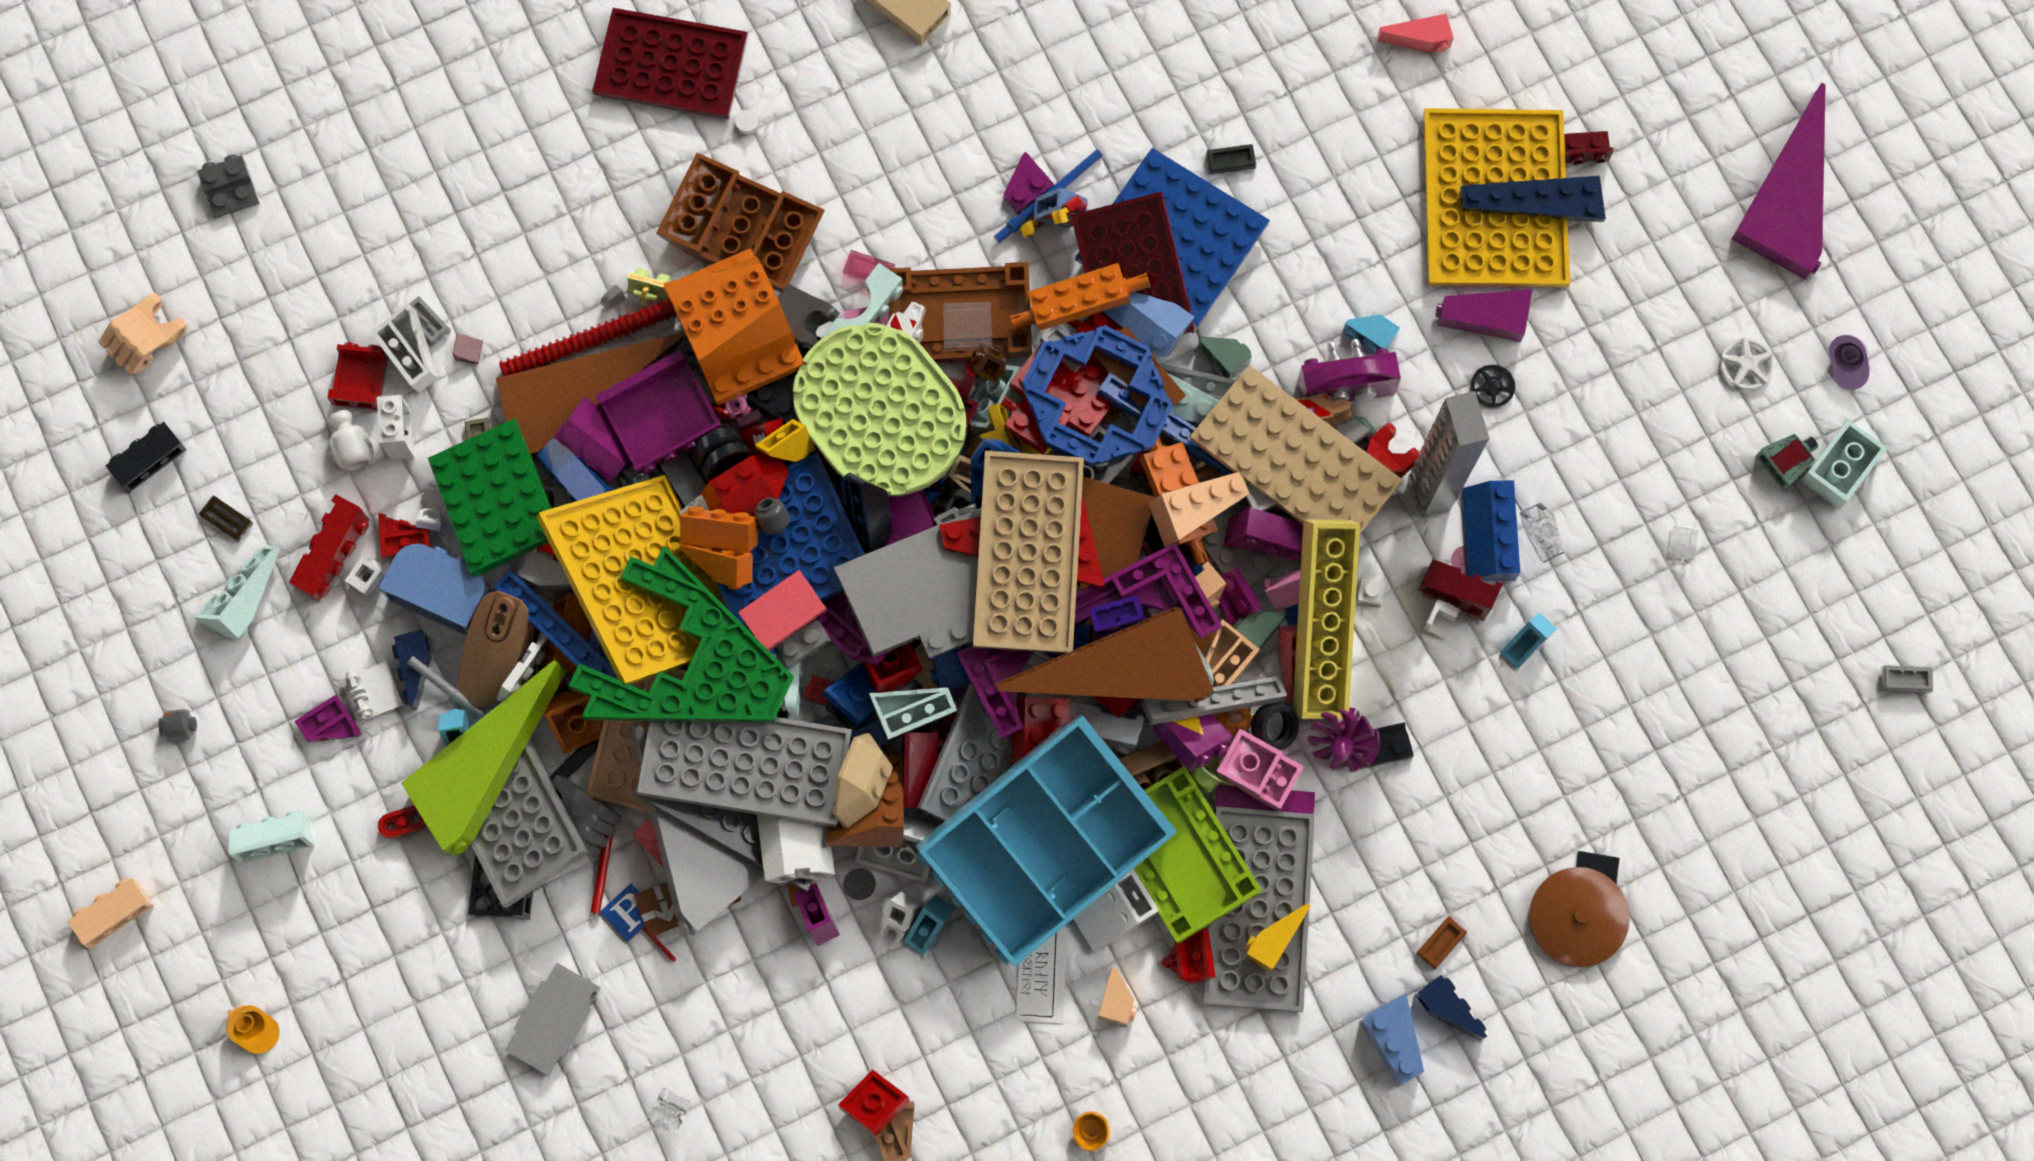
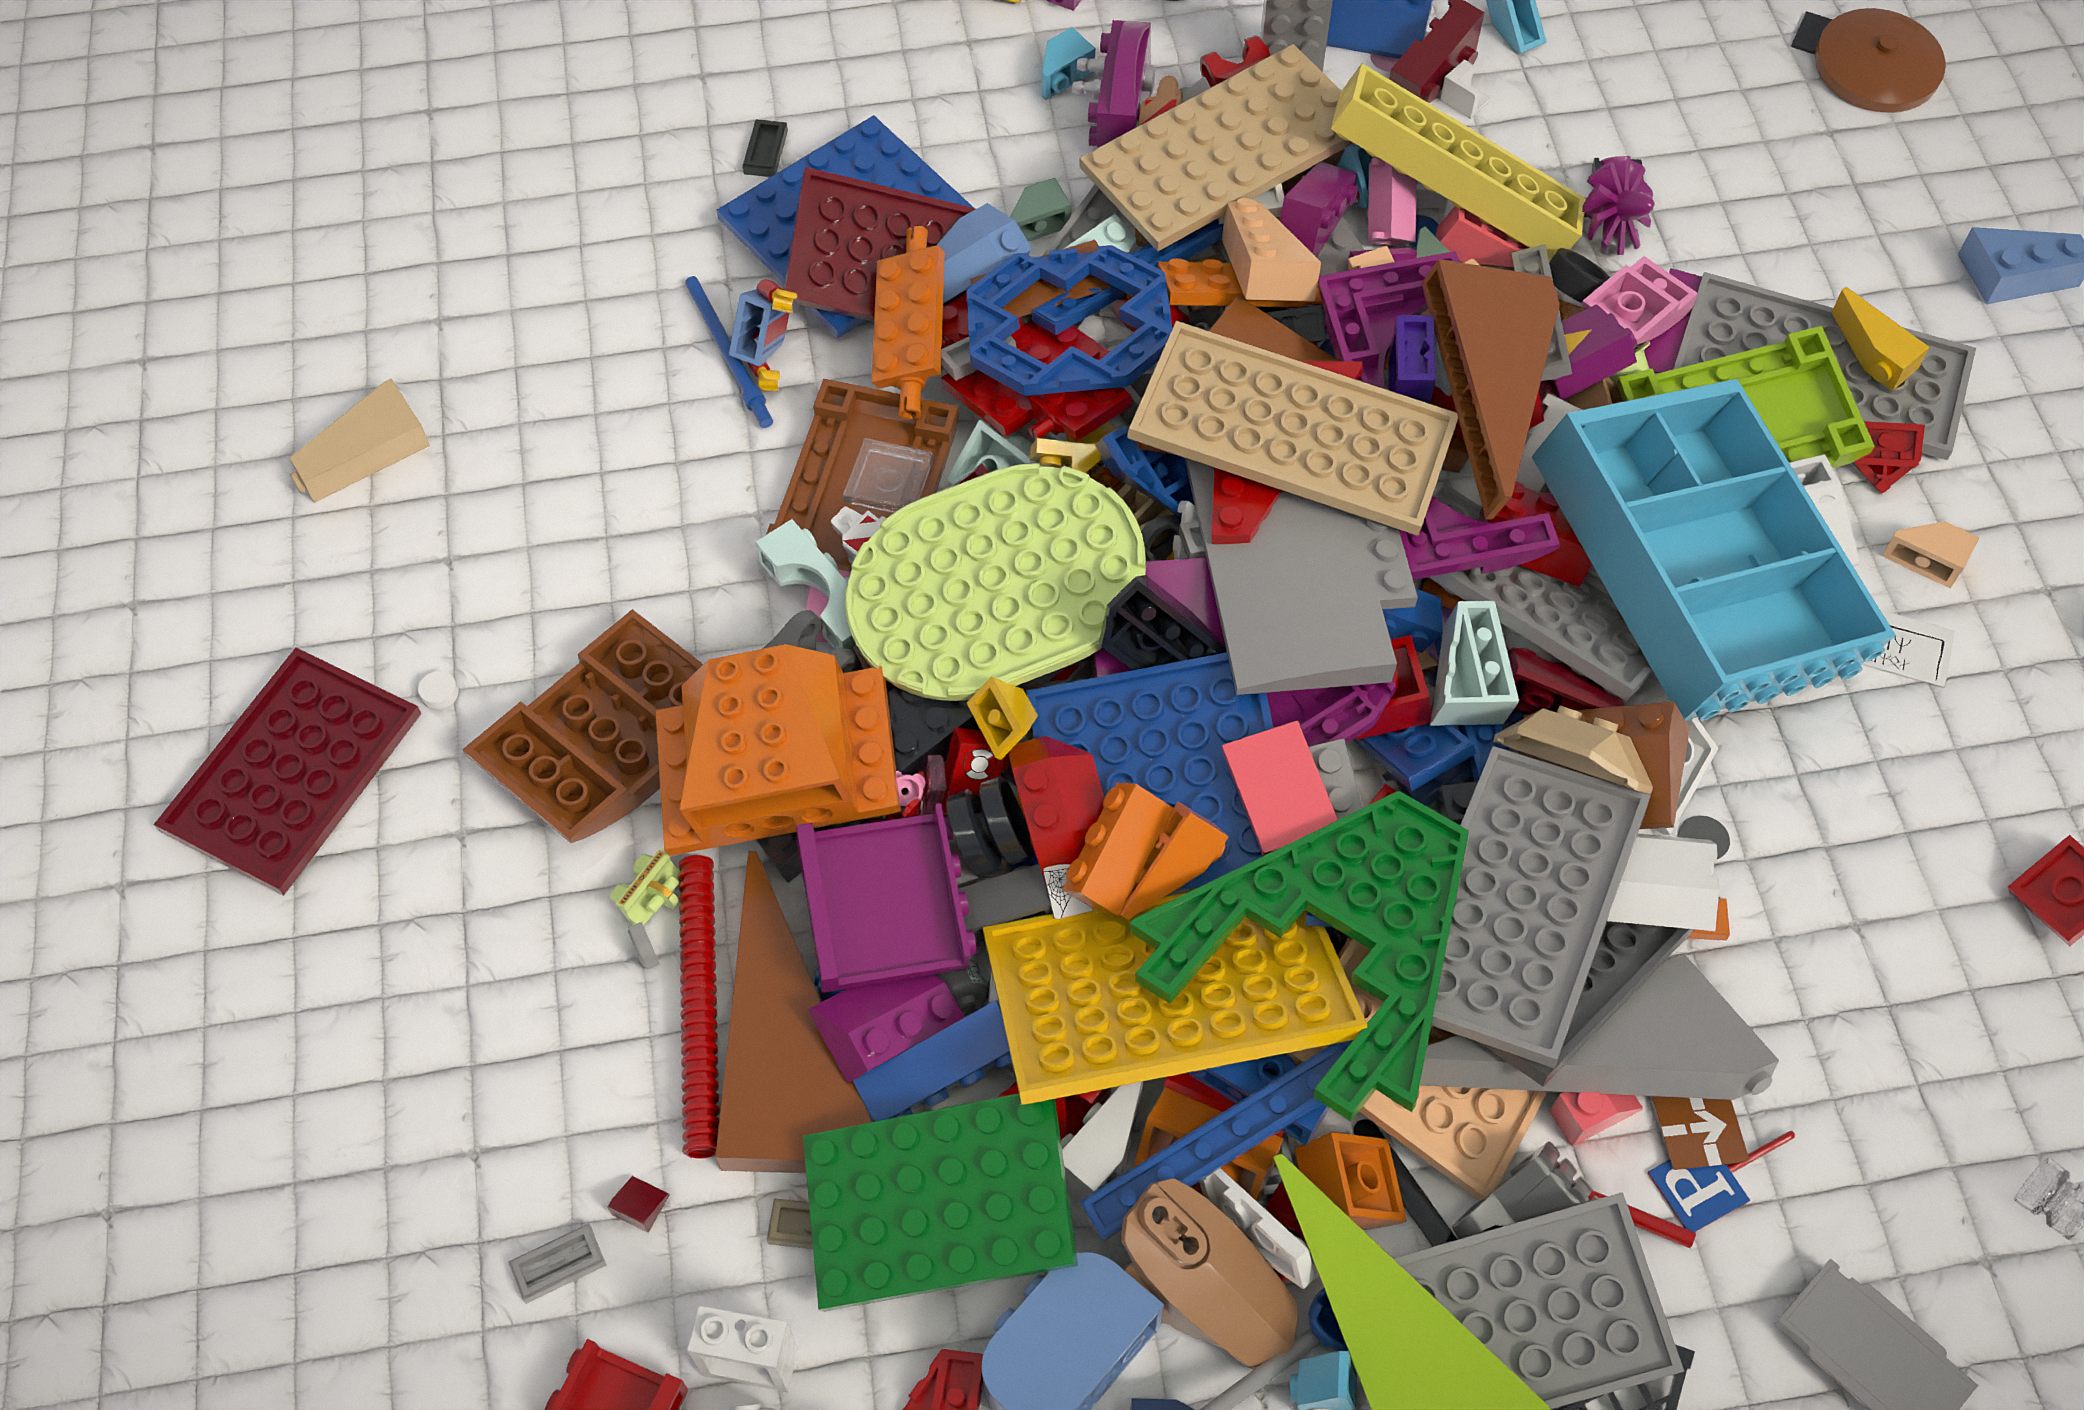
camera: 70 degrees left, 15 degrees down
(406, 346) = (600, 1298): white wedge -> none
(429, 519) = (926, 1342): white tile -> none
(772, 516) = (1120, 761): dark grey head -> none
(816, 914) = (1757, 897): magenta slope -> none
(861, 265) = (740, 590): clear pink tile -> none
(901, 914) = (1774, 780): white brick -> none
(929, 924) = (1790, 751): medium azure slope -> none
(988, 362) = (950, 459): reddish brown brick -> none
(1026, 184) = (699, 370): magenta wing -> none
(1441, 943) = (1893, 196): dark orange tile -> none
(1444, 1005) = (1983, 202): dark blue slope -> none

